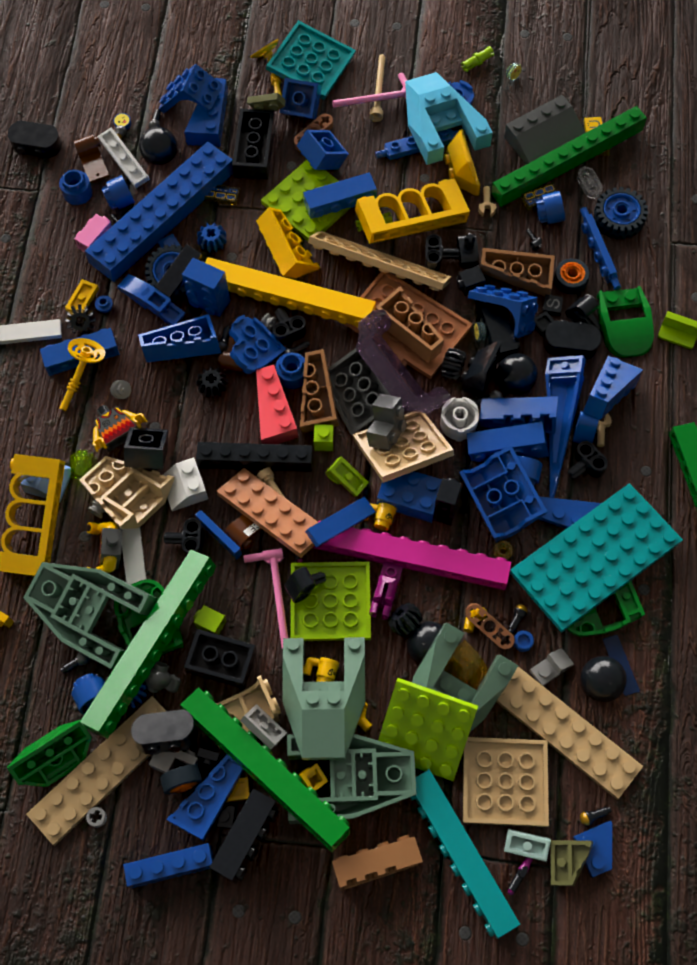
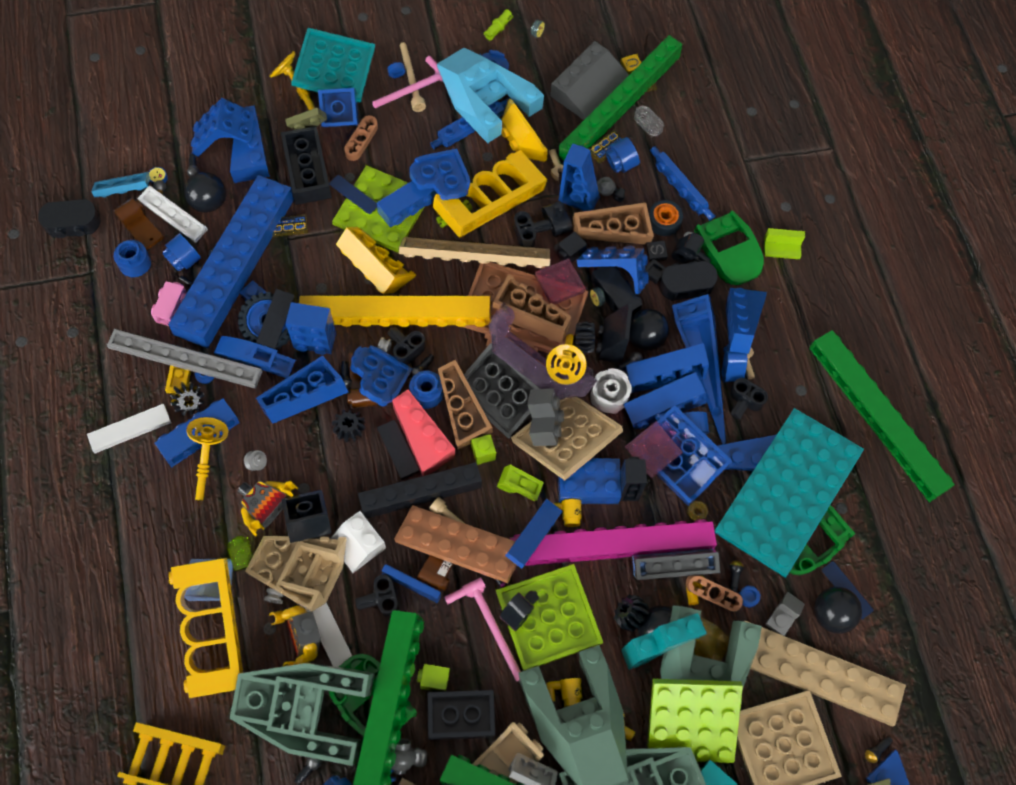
camera: 25 degrees left, 0 degrees up
(87, 121) = (121, 185): none -> dark azure plate
(91, 285) = (184, 358): none -> light grey tile
(211, 237) = (295, 273): blue gear -> none
(248, 416) = (398, 449): none -> black tile
(287, 180) = (353, 194): none -> dark blue sticker
(322, 150) = (379, 154): blue brick -> none
(367, 78) = (396, 70): none -> blue tile
(371, 179) = (442, 172): none -> blue plate
(386, 589) = (600, 588): magenta plate -> none
(424, 645) = (661, 640): none -> teal arch
(429, 373) = (564, 353): none -> yellow dish
(447, 307) = (560, 282): none -> clear pink plate
(462, 589) = (676, 564): none -> dark grey piece
(477, 480) = (655, 447): none -> clear pink plate
(496, 217) = (579, 180): none -> blue wedge
(525, 232) = (606, 186): none -> dark grey tile
(620, 213) = (700, 142): wheel -> none

